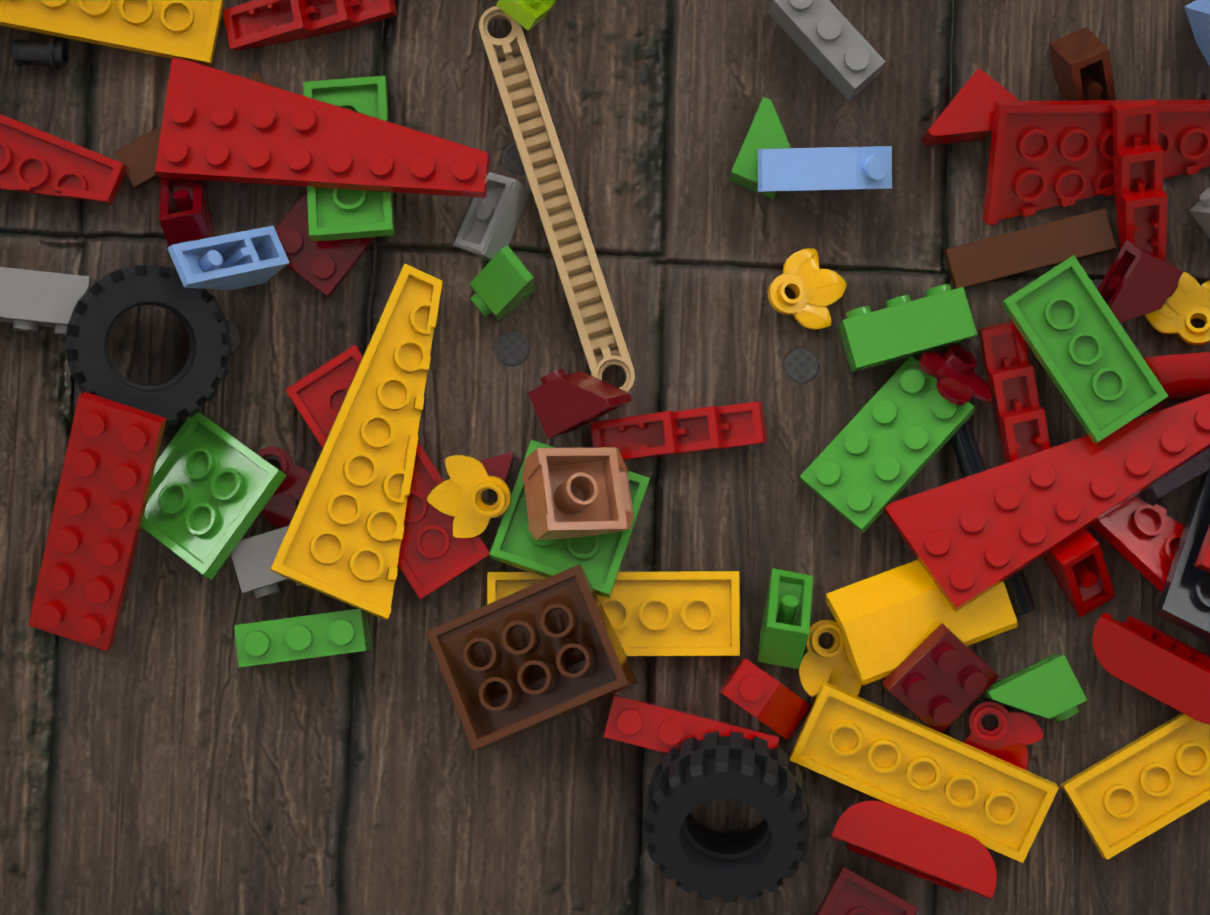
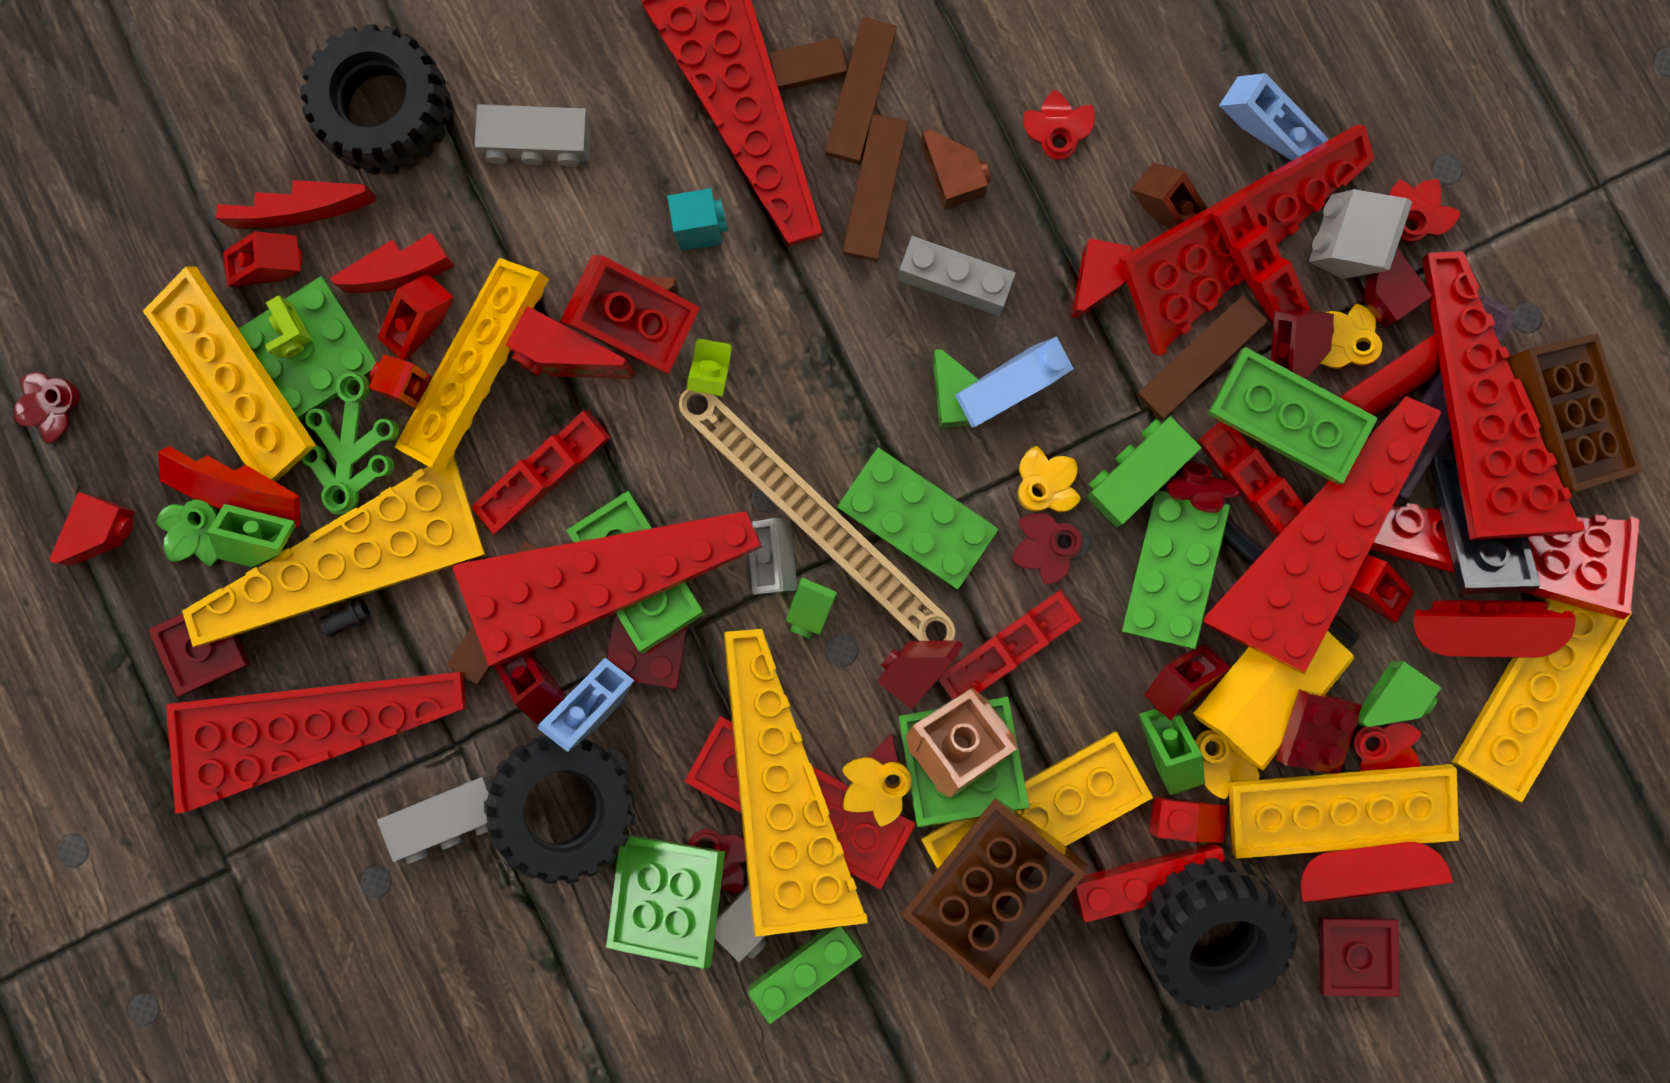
camera: 25 degrees left, 0 degrees up
(96, 520) = (594, 969): red plate -> none
(657, 257) = (917, 518): none -> bright green plate
(765, 353) = (1041, 546): none -> dark red plate
(835, 558) = (1186, 681): none -> dark red slope

